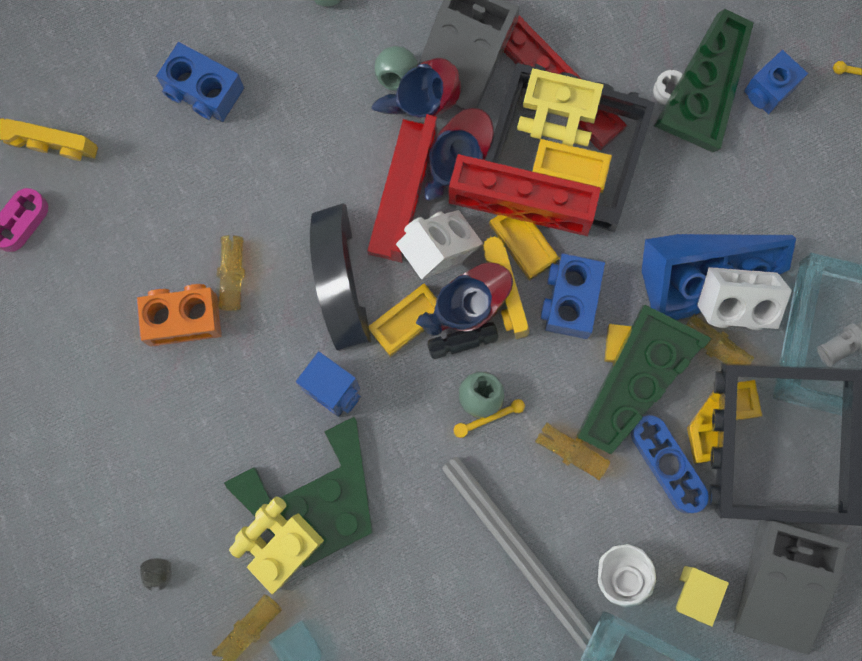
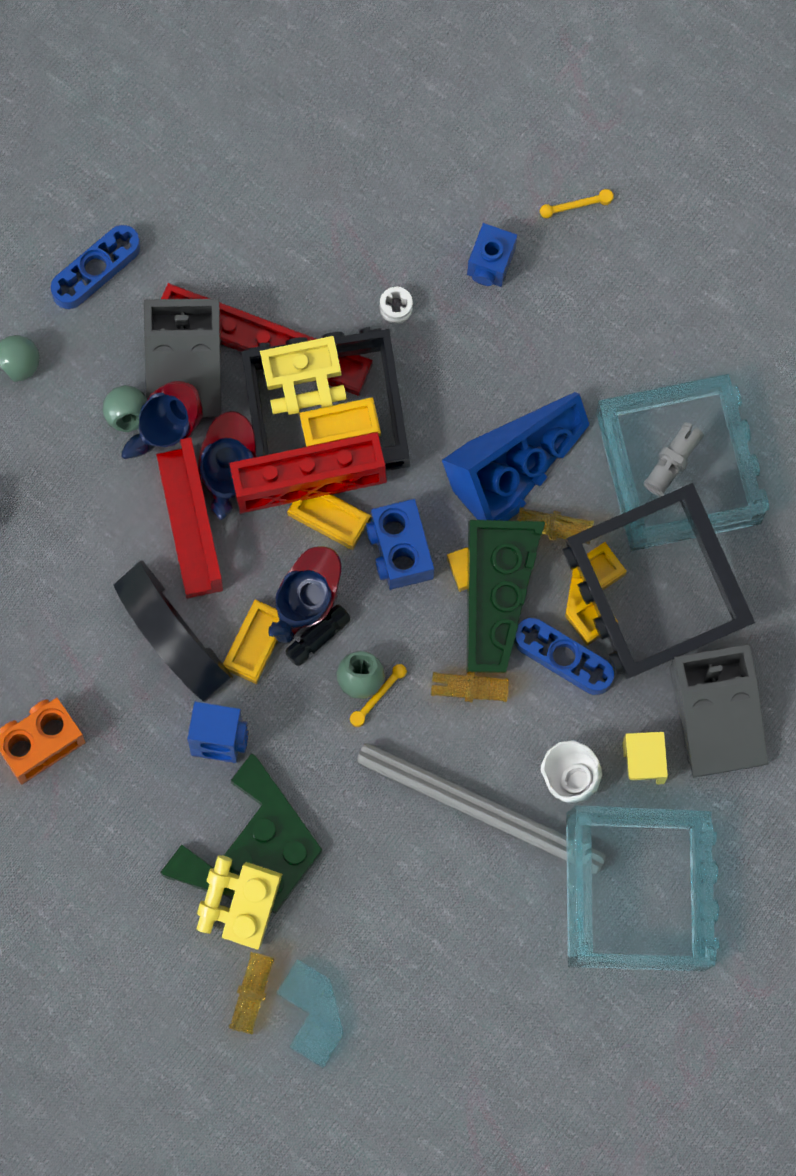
camera: 30 degrees left, 5 degrees down
(155, 573) = (139, 984): clear smoke hinge -> none
(230, 273) = (65, 678): clear yellow pin -> none
(438, 243) = (252, 553): white brick -> none
(514, 315) = (354, 588): yellow hinge -> none
(707, 88) = (431, 290): dark green wing -> none
(752, 297) = (556, 463): white brick -> none

